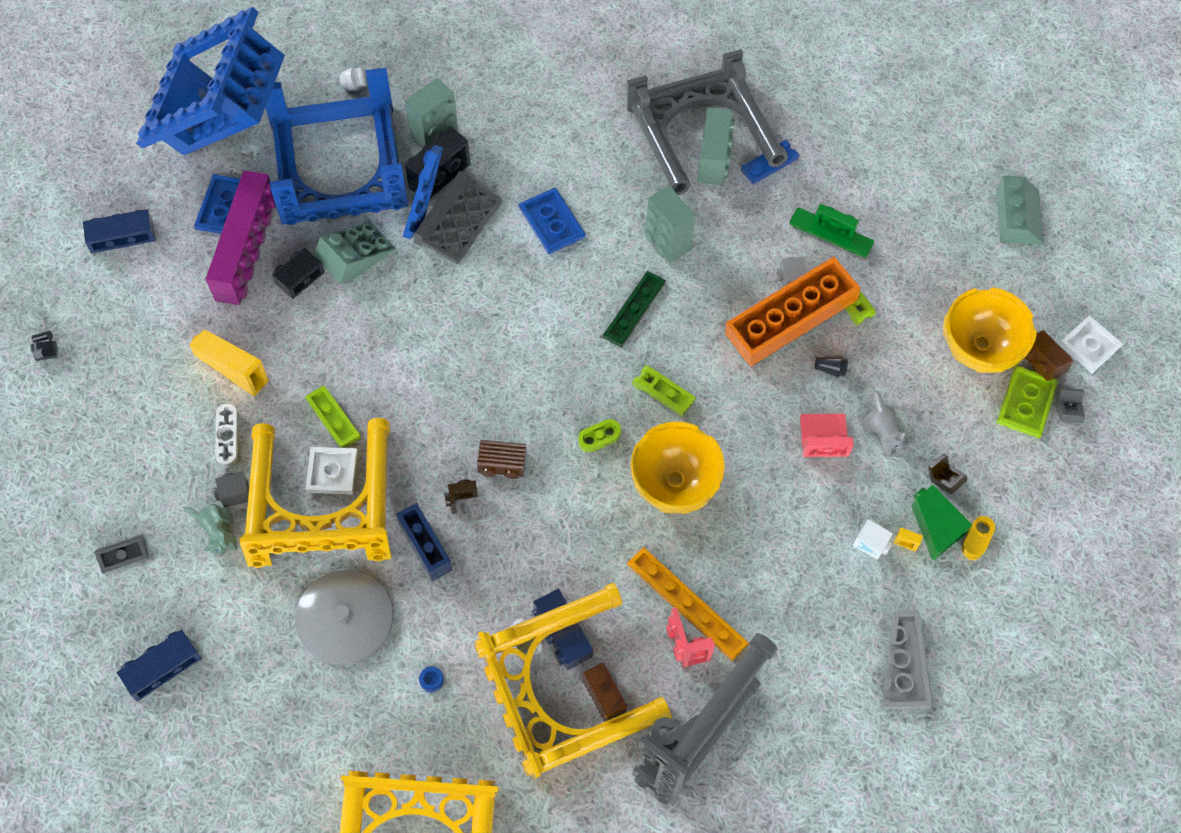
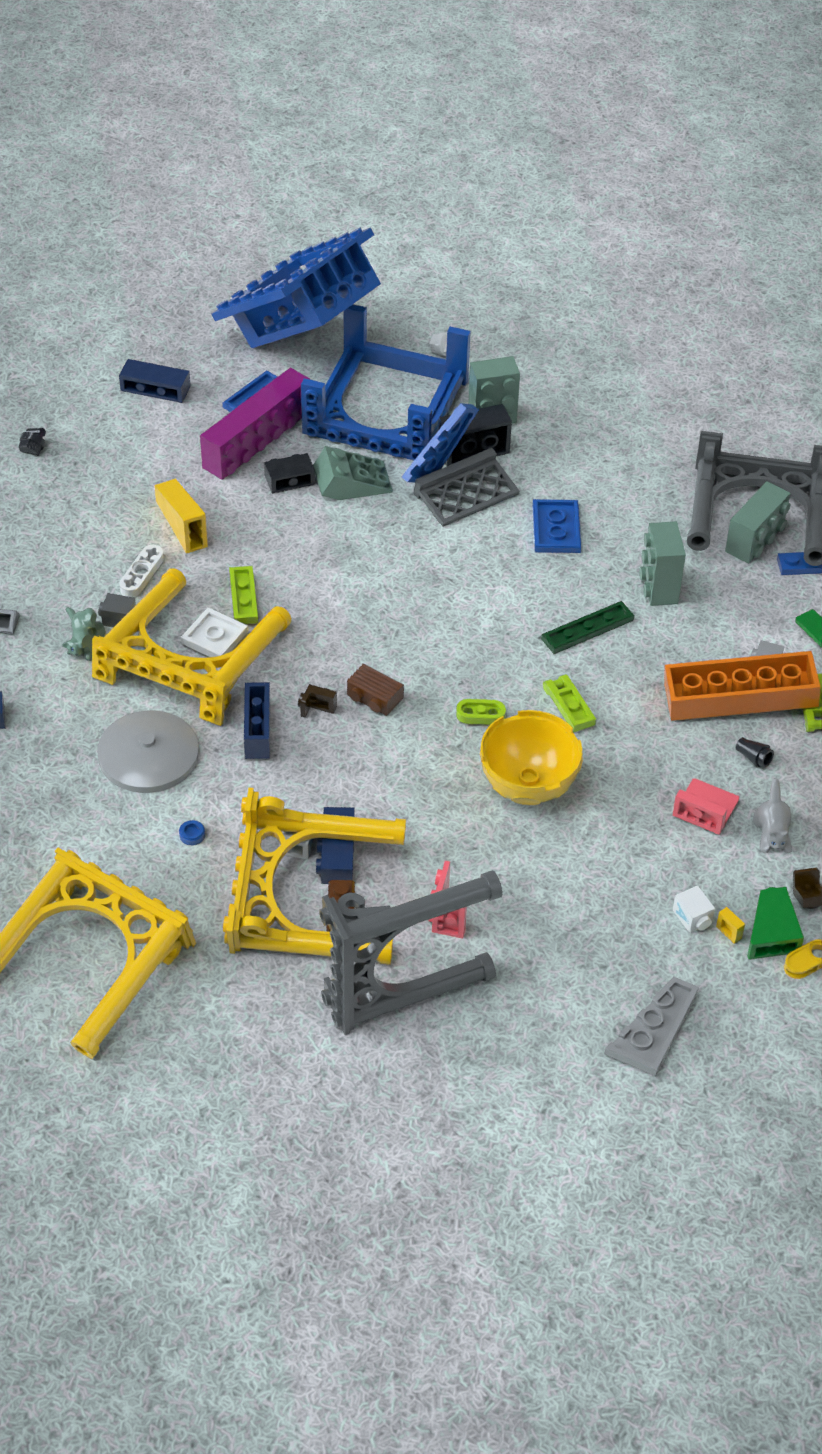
camera: 30 degrees right, 15 degrees down
(688, 604) = (466, 868): light orange tile -> none

